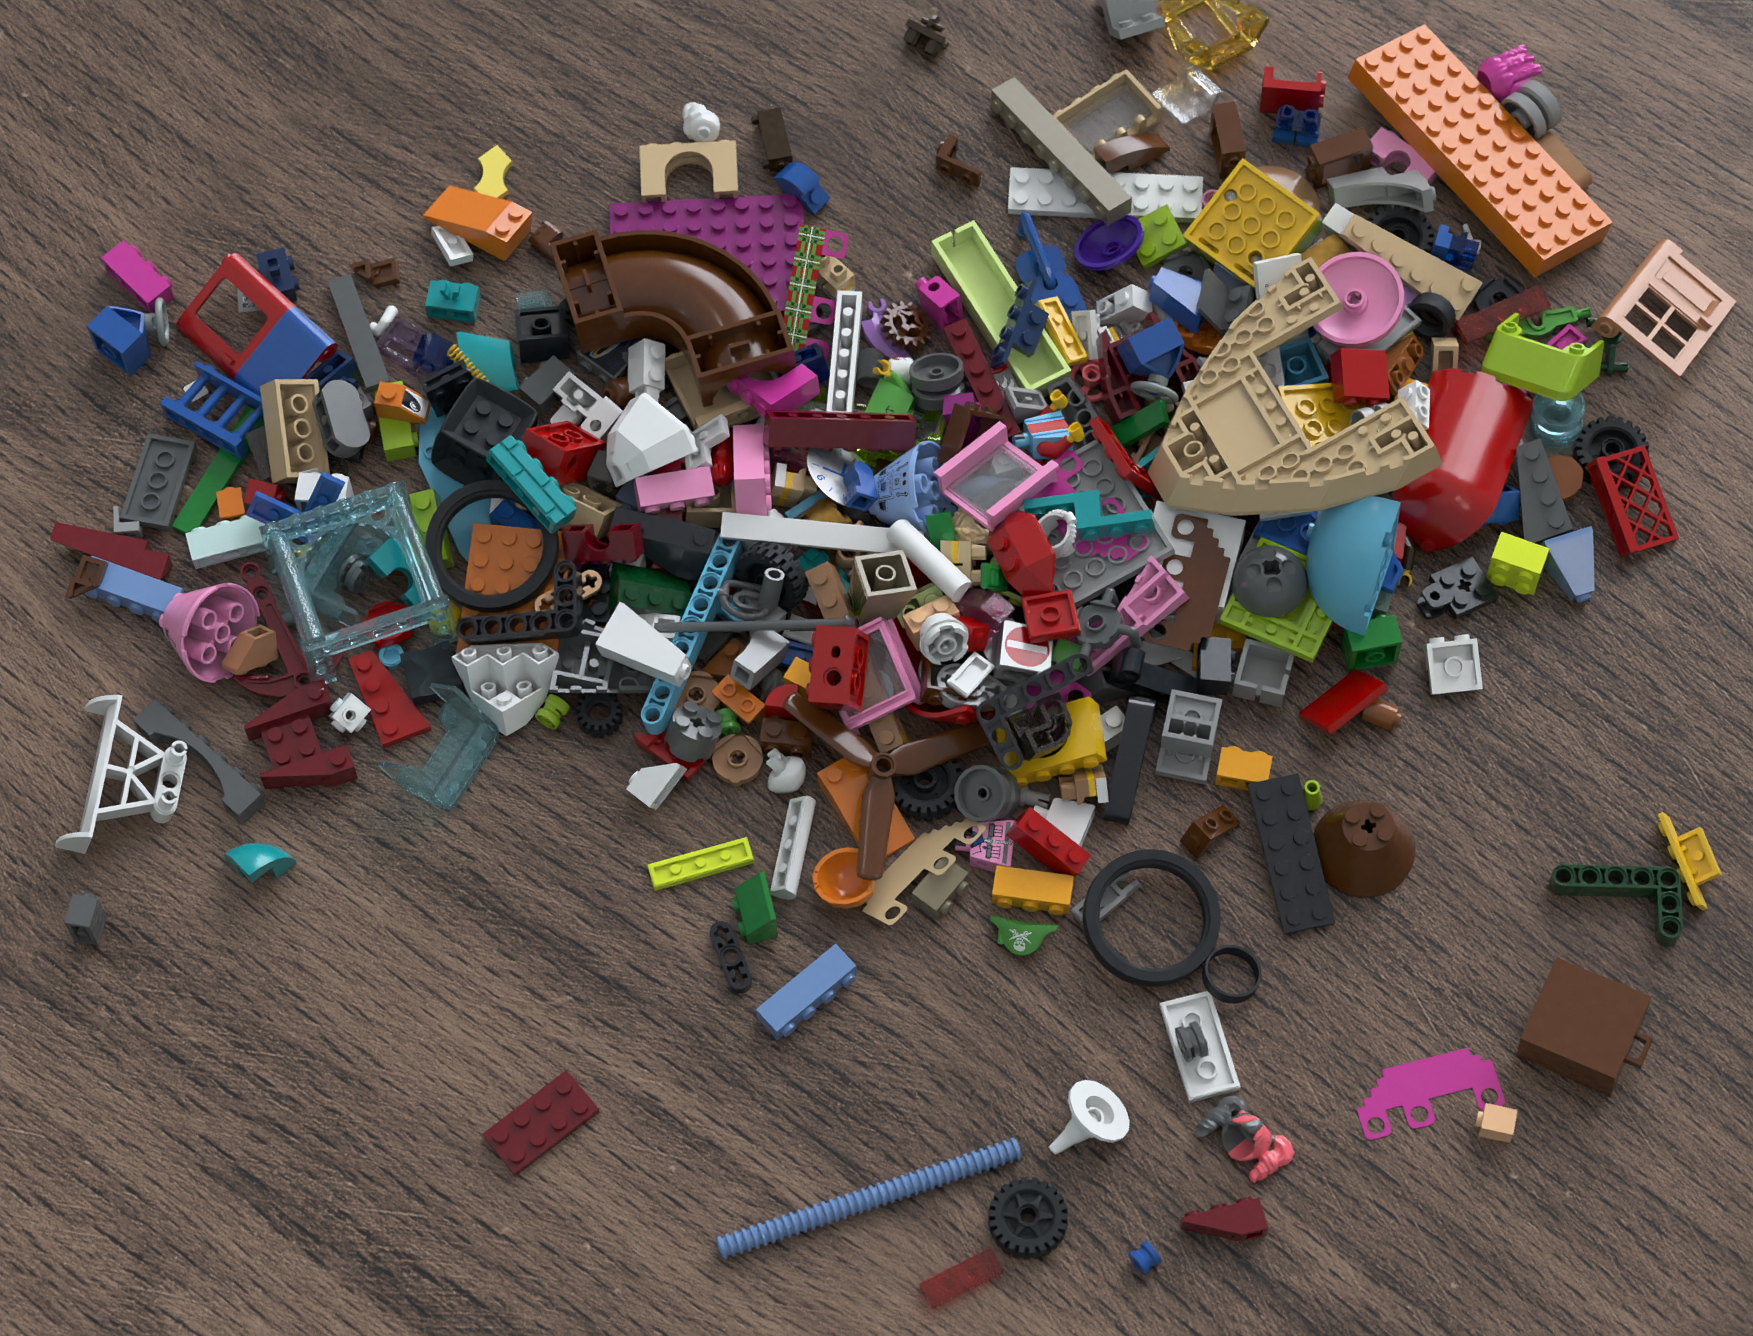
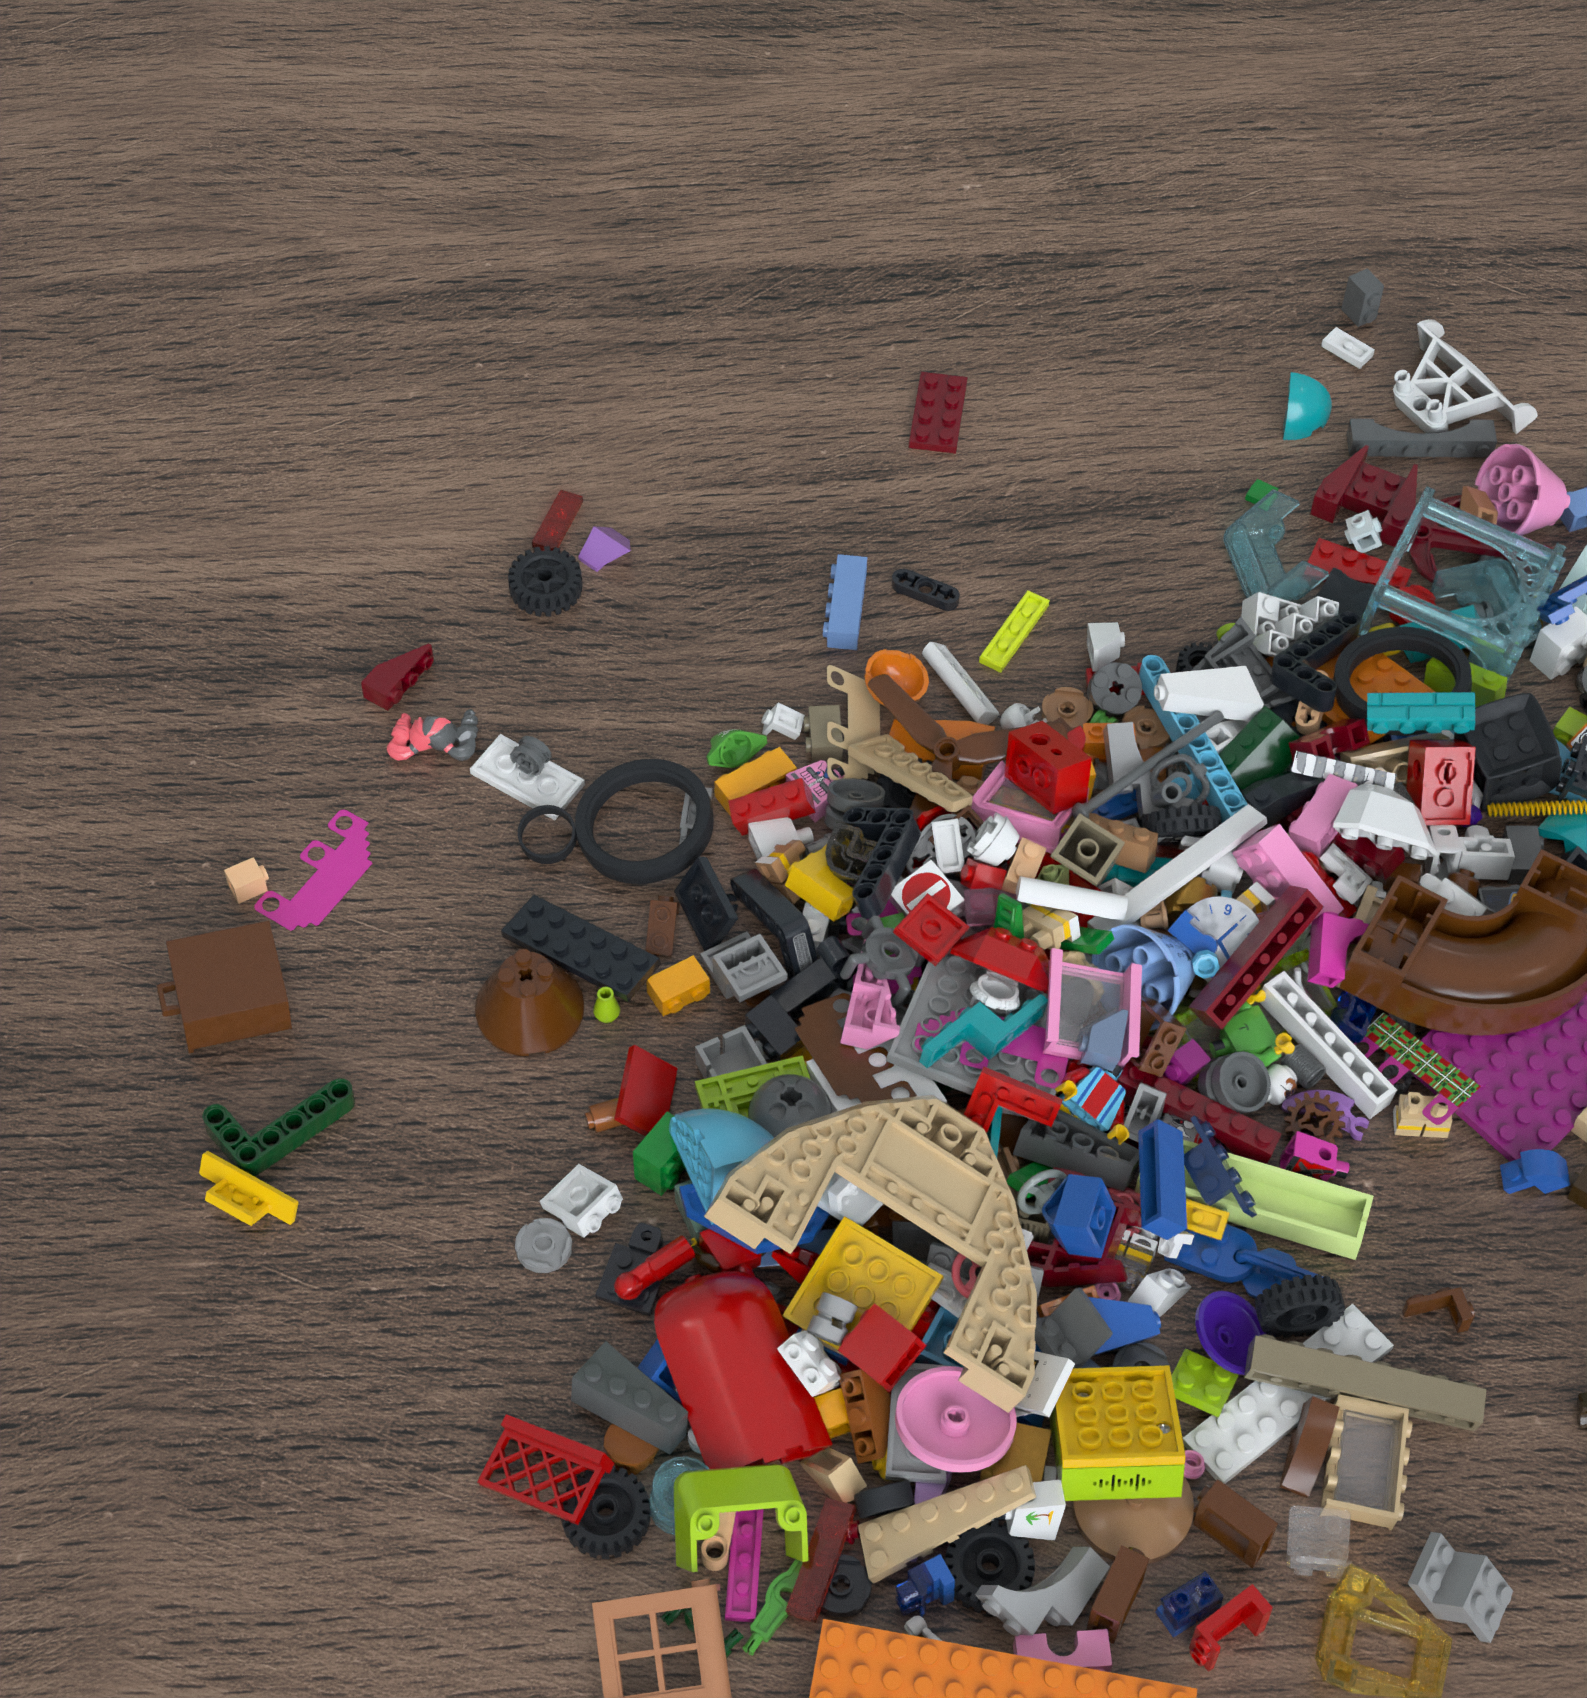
camera: 135 degrees right, 10 degrees down
(147, 895) = (1347, 347): none -> white plate
(376, 823) = (1258, 491): none -> green tile
(626, 504) = (1322, 767): none -> sticker
(755, 909) = (936, 621): green slope -> none
(869, 1198) = (666, 520): medium blue piece -> none
(875, 459) = (1205, 964): none -> medium azure tile
(925, 795) = (889, 758): none -> tan wing
(946, 1209) = (603, 547): none -> medium lavender slope
(962, 926) = (783, 721): none -> white bracket
(1012, 446) = (1104, 1042): none -> sand blue slope
(1056, 214) = (1299, 1306): none -> black wheel
(1067, 339) = (1162, 1179): none -> blue brick
(1094, 1114) = (557, 667): white piece -> none
(1144, 1257) = (437, 614): blue wheel -> none
(1168, 807) = (706, 904): none -> black plate
(1447, 565) = (656, 1267): none -> red piece
(1503, 662) = (541, 1253): none -> light grey tile
(1517, 564) = (599, 1319): neon yellow brick -> none
(1572, 563) = (551, 1365): medium blue slope -> none

